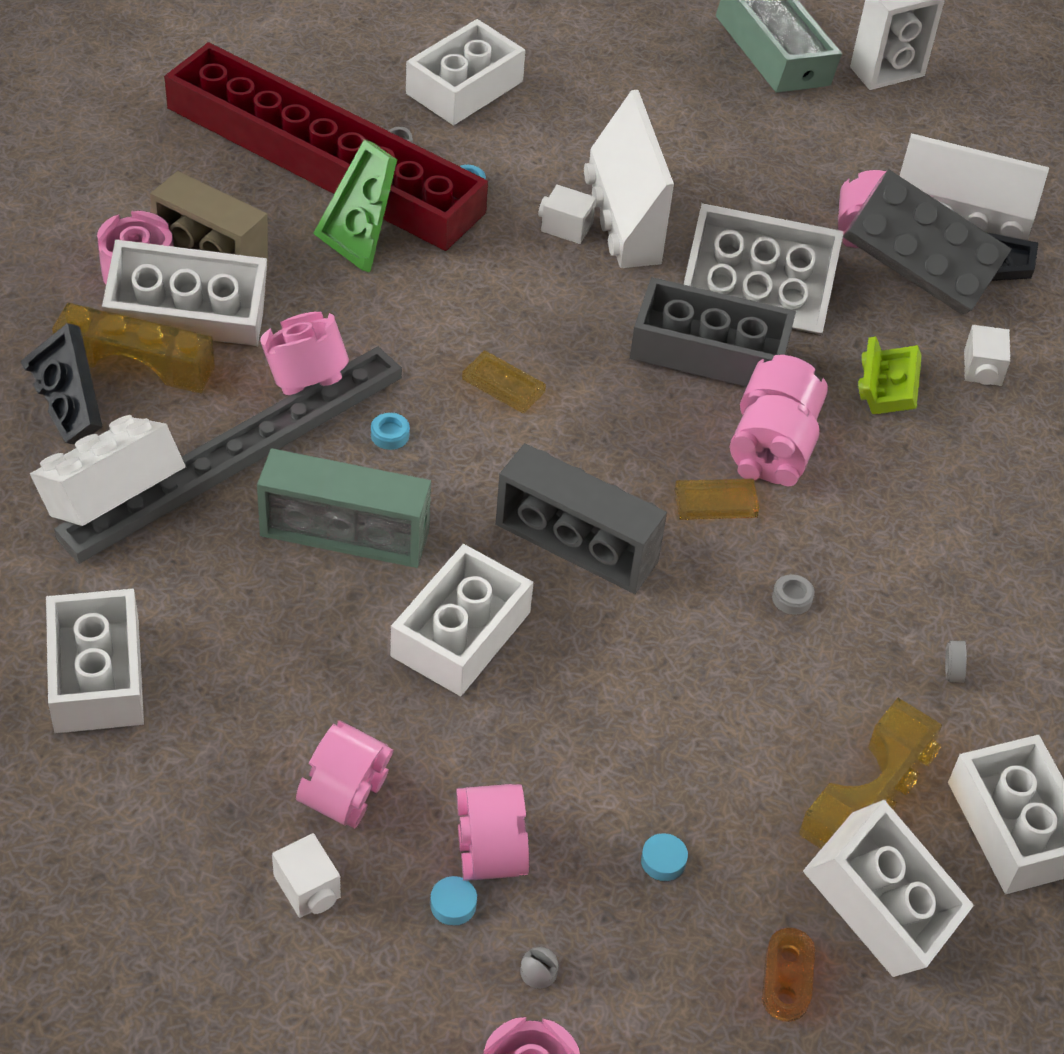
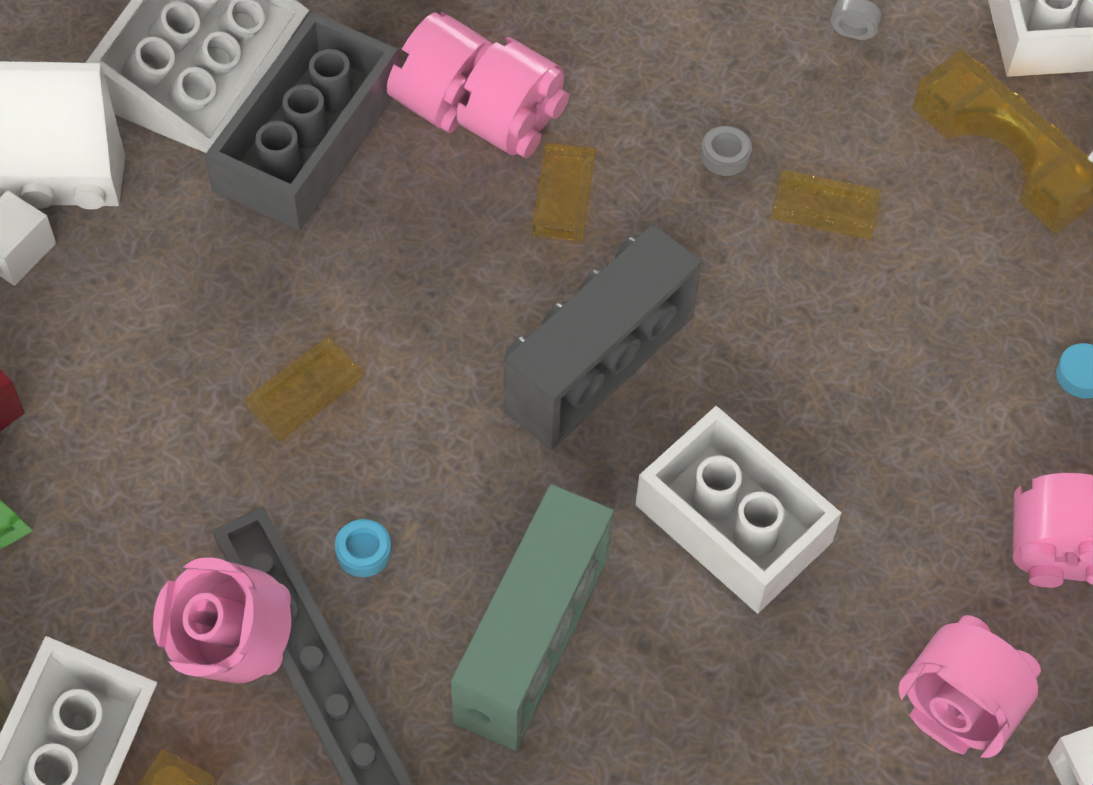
camera: 75 degrees left, 10 degrees up
(766, 665) = (826, 204): none -> clear yellow tile

